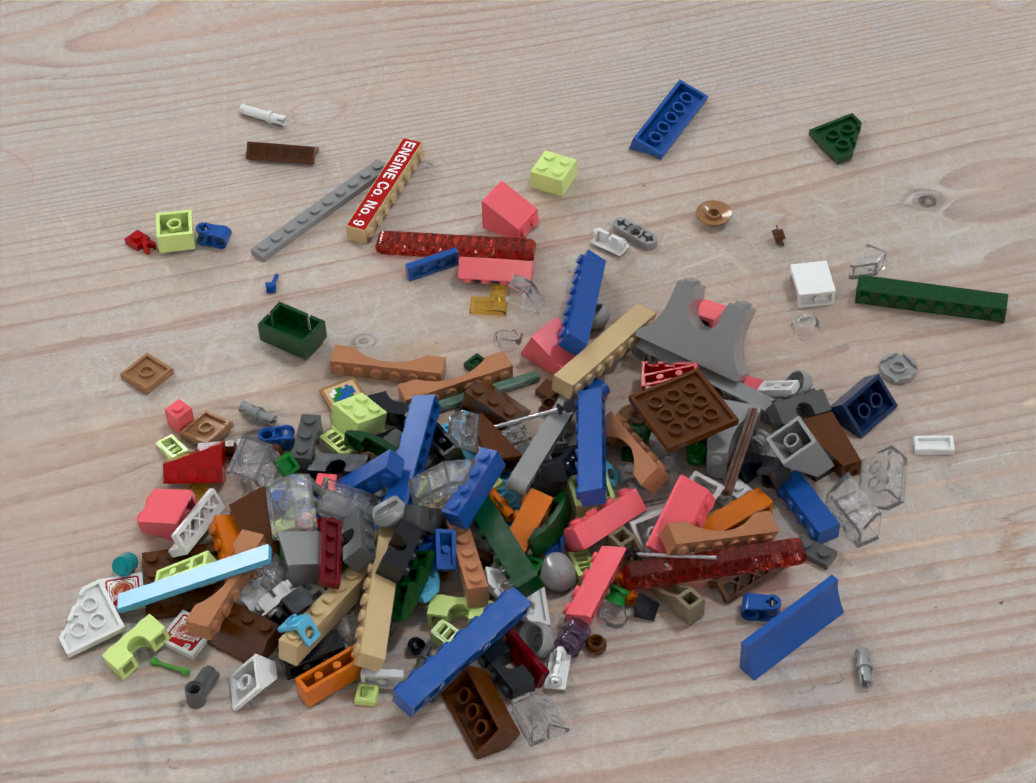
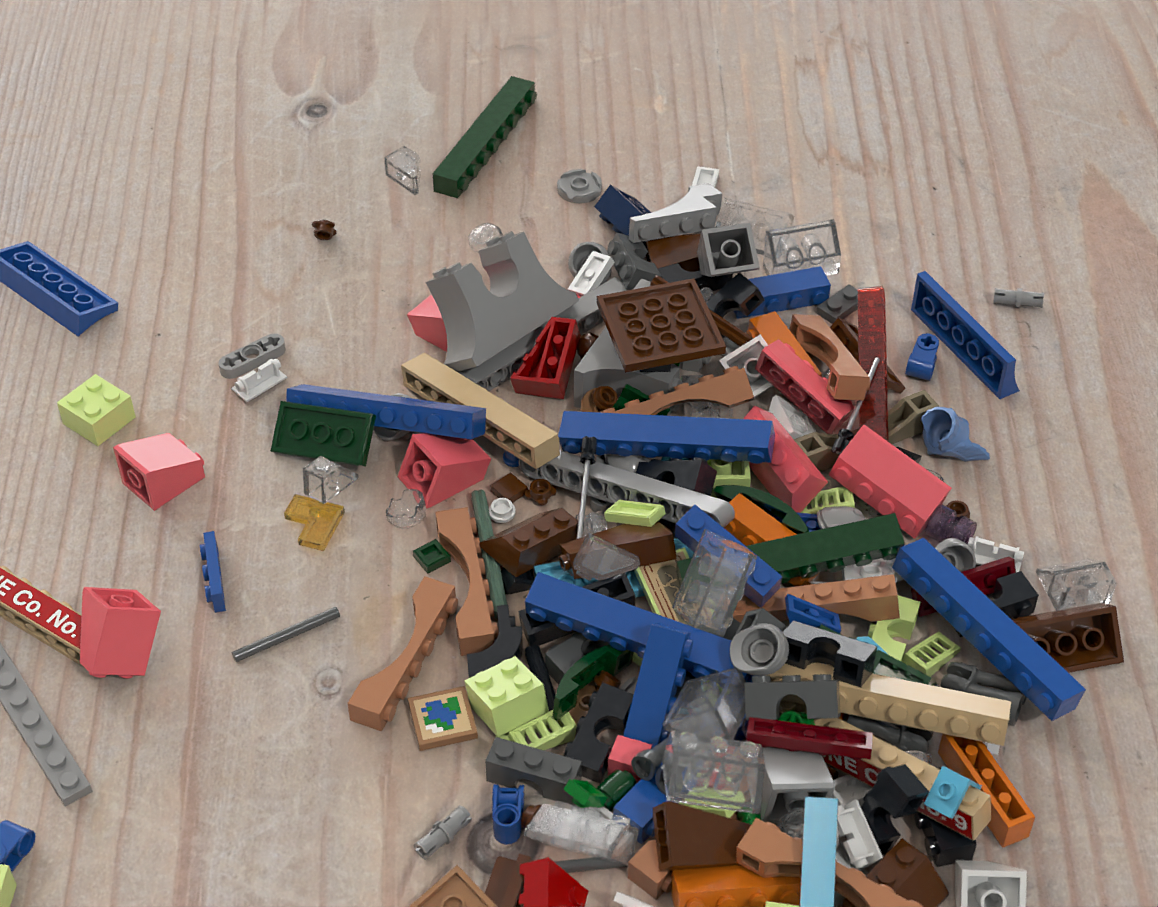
camera: 80 degrees left, 0 degrees up
(271, 286) = (161, 782): blue hand -> none
(290, 330) = (287, 769): dark green piece -> none
(359, 226) = (116, 632): none -> coral slope
(367, 694) = (1013, 763): yellowish green tile -> none
(395, 312) = (285, 634): none -> dark grey bar
(428, 244) = (202, 516): clear red beam -> none
(494, 270) = (260, 501): coral slope -> none
(518, 444) = (635, 513): none -> yellowish green tile
(525, 389) = (502, 510): none -> white plate
(558, 279) = (323, 432): none -> dark green tile
(672, 624) = (949, 435): none -> medium blue helmet
(713, 213) = (256, 275): medium nougat dish -> none
(813, 284) = (421, 214): white panel -> none
(838, 137) = (176, 150): dark green plate -> none
(864, 429) = (688, 215): none -> light grey arch

